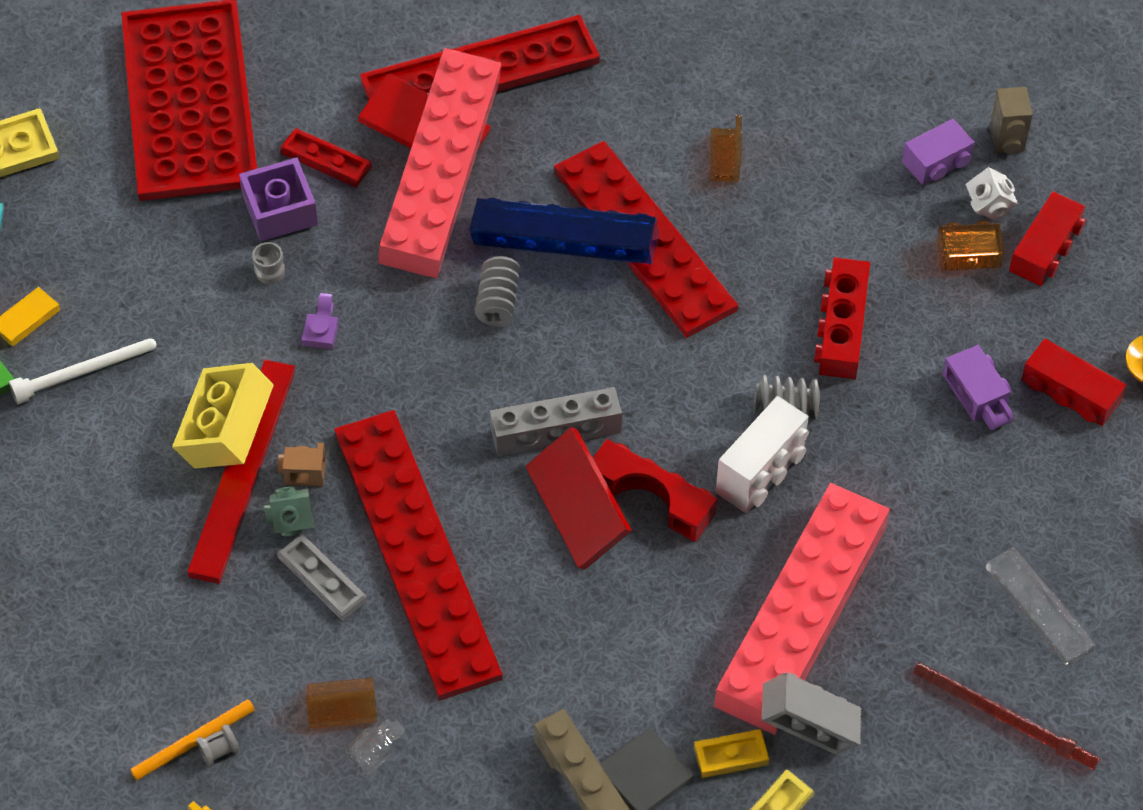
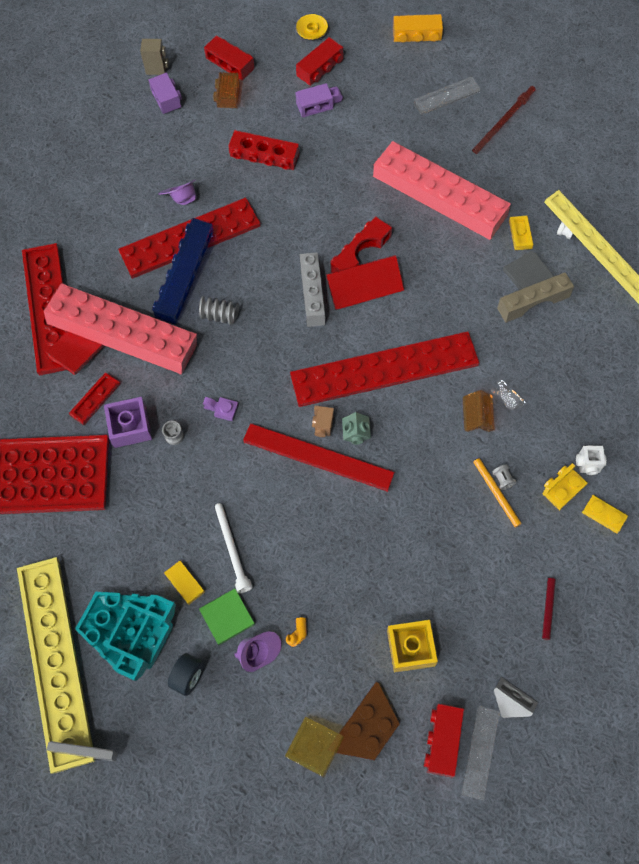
camera: 80 degrees left, 10 degrees up
(223, 416) = (288, 459): light yellow brick -> none
(322, 577) = (396, 418): light grey tile -> none
(726, 153) = (140, 188): clear orange panel -> none
(729, 205) = (181, 194): none -> medium lavender piece
(762, 455) = (351, 192): white brick -> none
(797, 396) = (311, 181): light grey piece -> none
(811, 713) = (510, 188): light grey brick -> none
(991, 194) = (192, 77): white brick -> none

